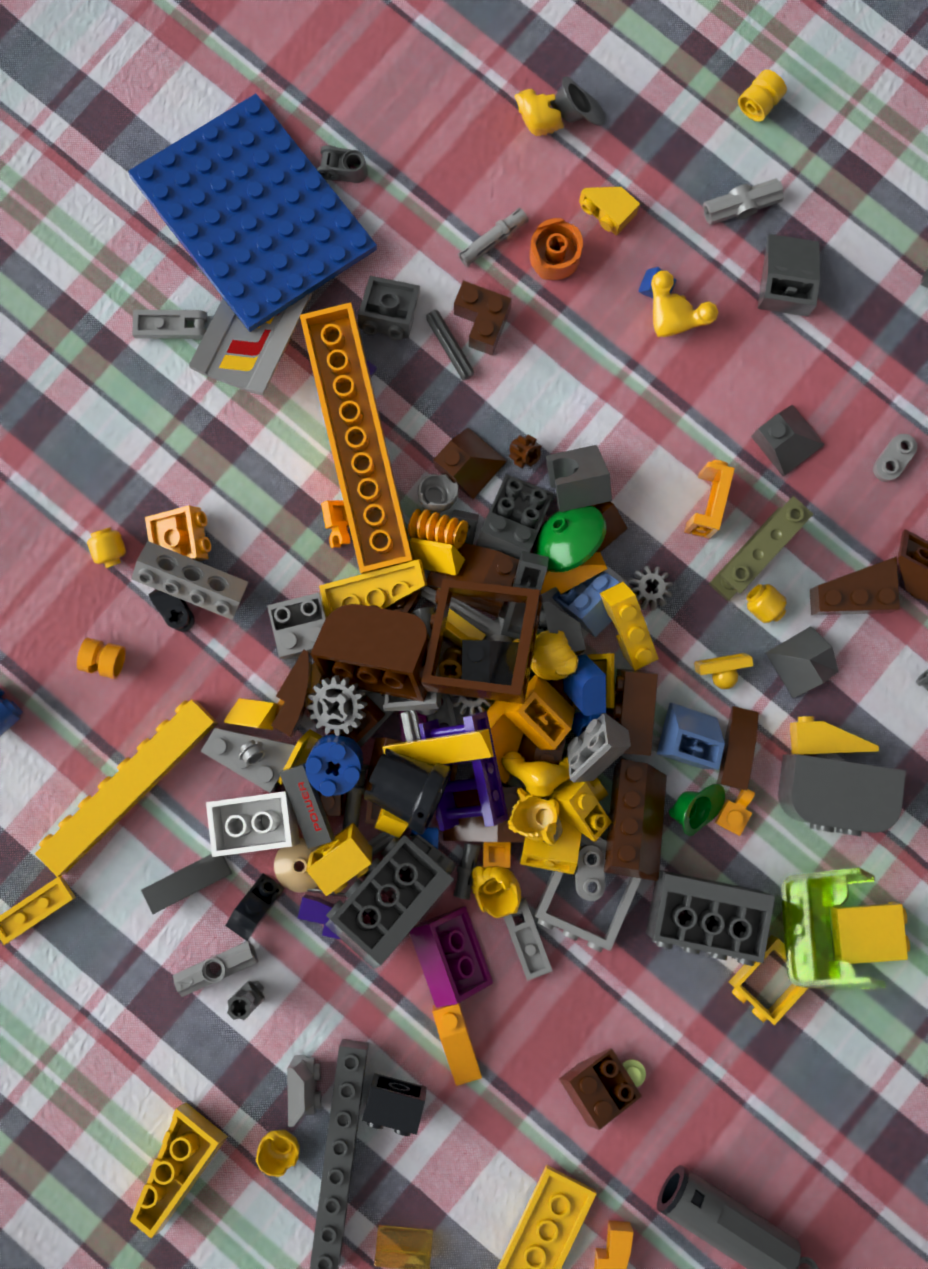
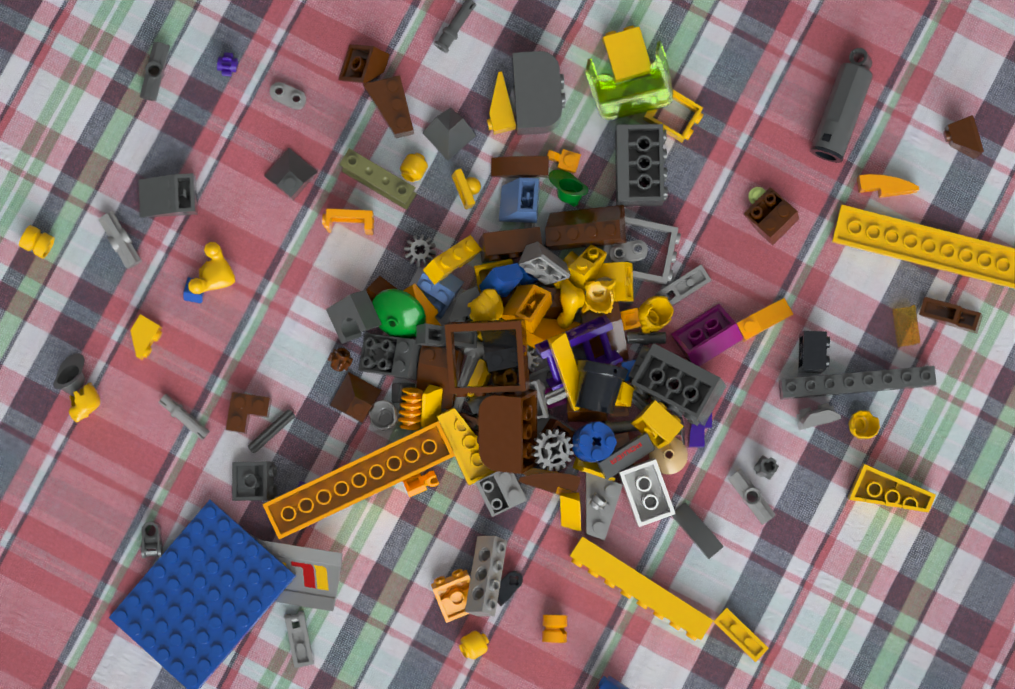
camera: 105 degrees left, 0 degrees up
(254, 907) = (704, 479): black slope -> none
(568, 245) = (196, 373): orange brick -> none

